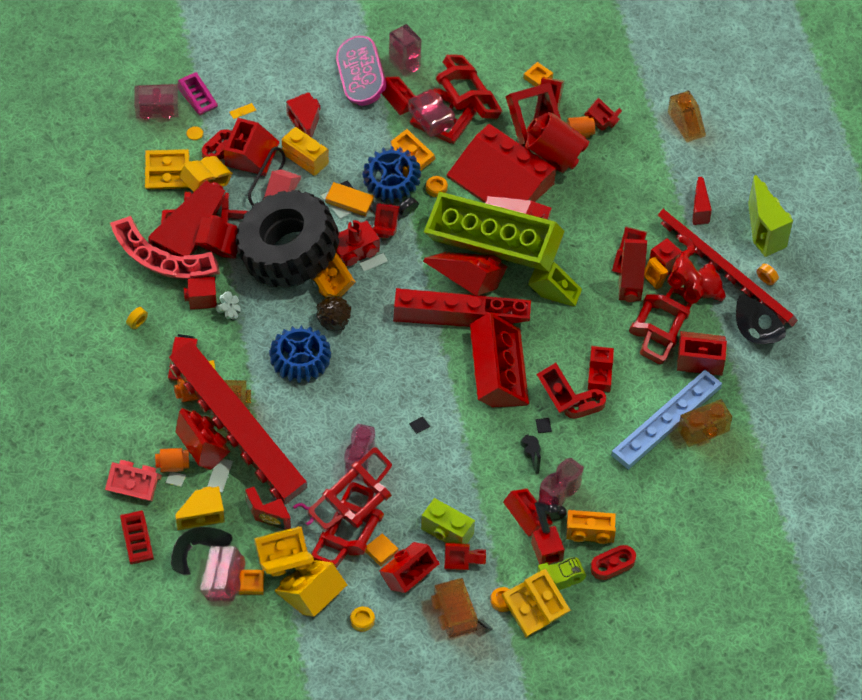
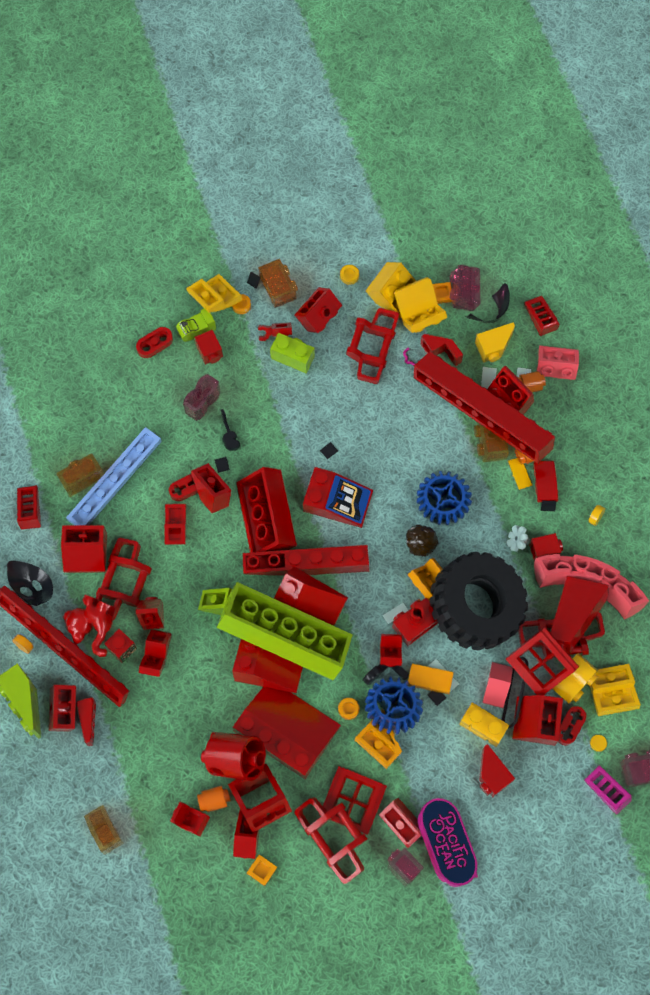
camera: 175 degrees right, 15 degrees up
(216, 170) = (556, 650): none -> red piece
(217, 236) = (544, 597): red brick -> none
(242, 111) = (557, 779): yellow piece -> none
(356, 470) = (379, 349): red bar -> none
(361, 443) = (375, 408): clear pink brick -> none
(381, 550) = (343, 332): light orange tile -> none
(420, 369) = (337, 498): none -> slope
(431, 112) = (365, 787): clear pink brick -> none
(522, 507) = (229, 381): red slope -> none
(551, 512) = (216, 363): black piece -> none
(591, 526) = (174, 368): light orange bracket -> none
(655, 273) = (129, 629): light orange tile -> none
(726, 209) = (62, 708): none -> red brick
(764, 388) = (31, 519): none -> red slope

